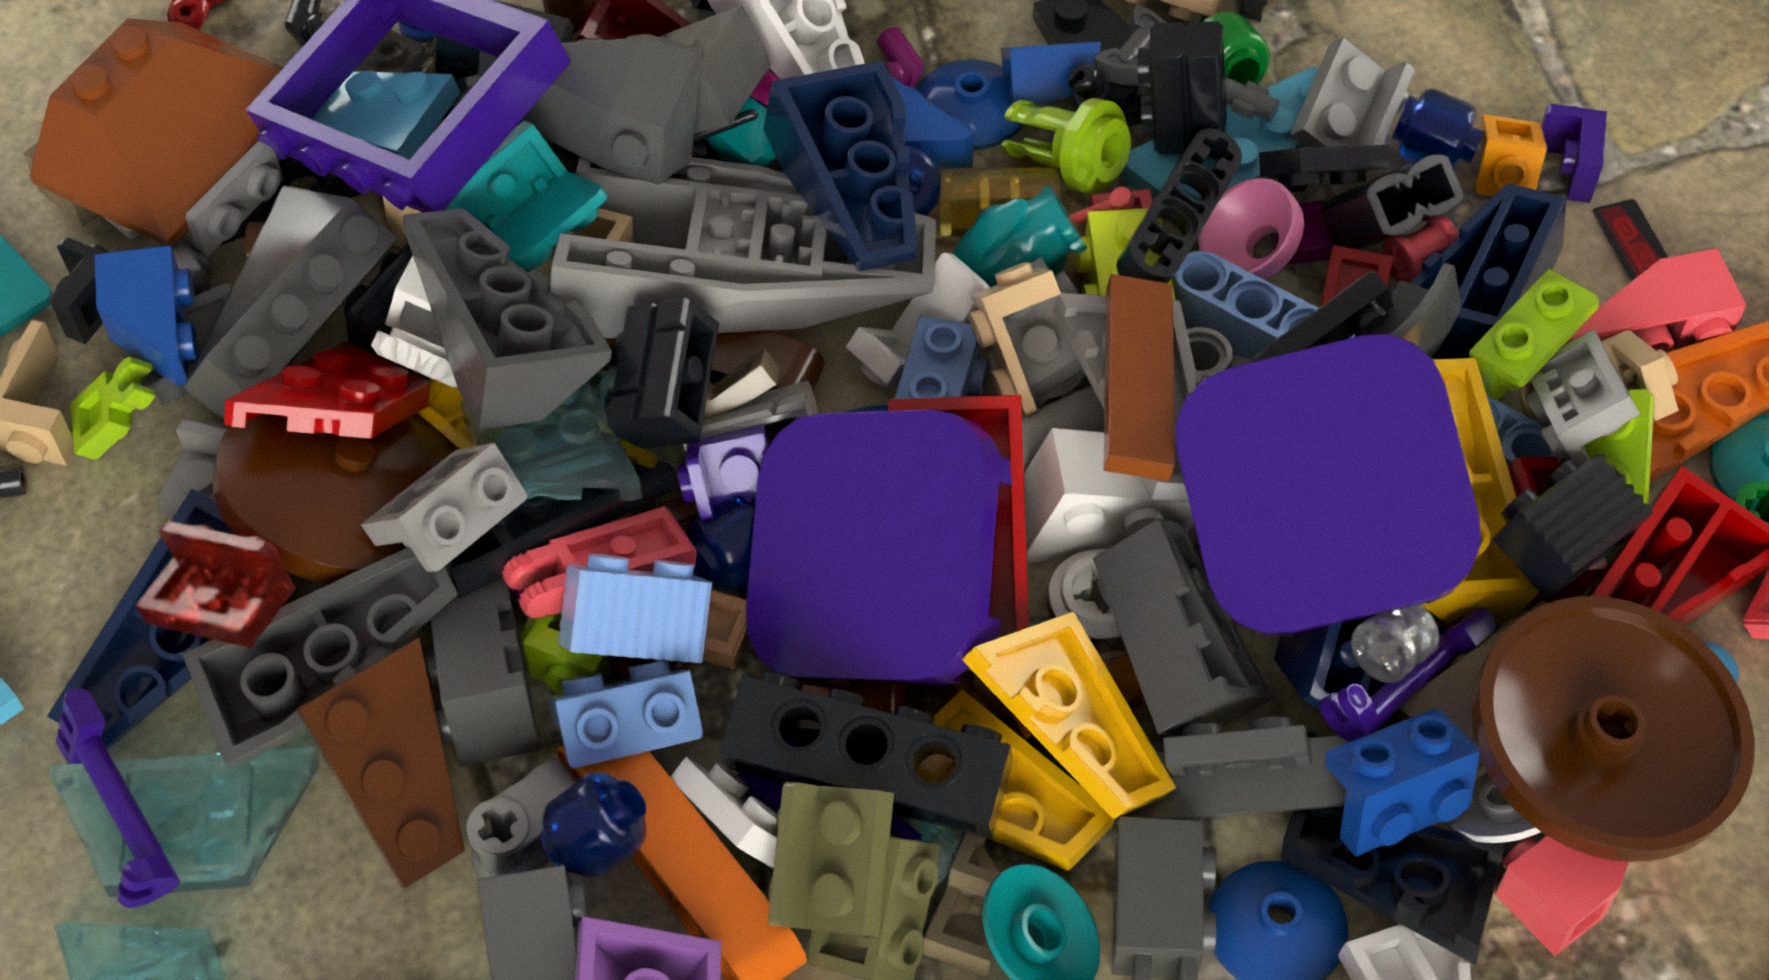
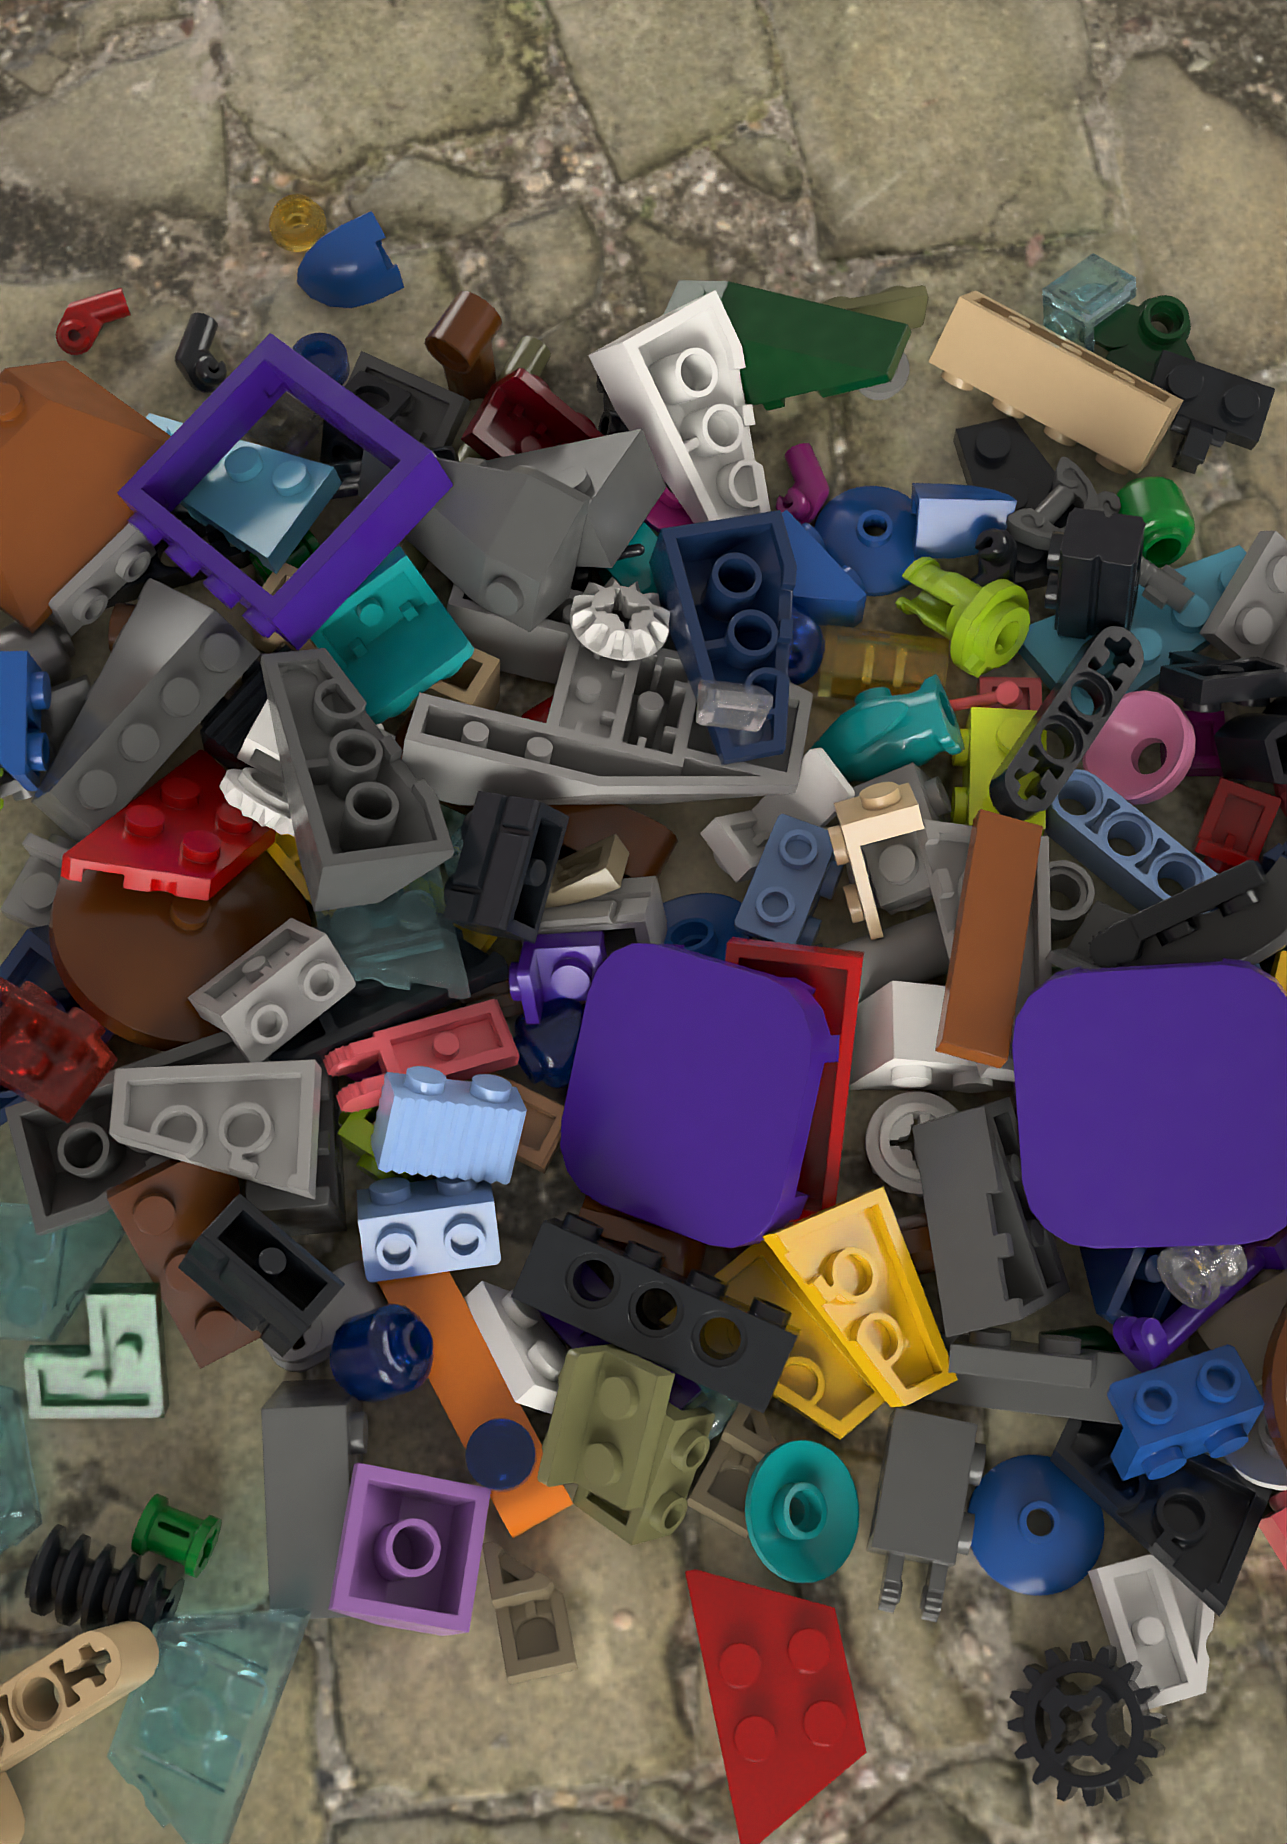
camera: 10 degrees right, 15 degrees up
(322, 897) = (120, 1369): none -> clear green plate
(411, 617) = (226, 1117): none -> light grey wing
(462, 758) = (260, 1274): none -> black brick
(728, 908) = (501, 1455): none -> clear blue tile
(743, 170) = (603, 630): none -> white gear
(862, 211) = (732, 705): none -> clear slope

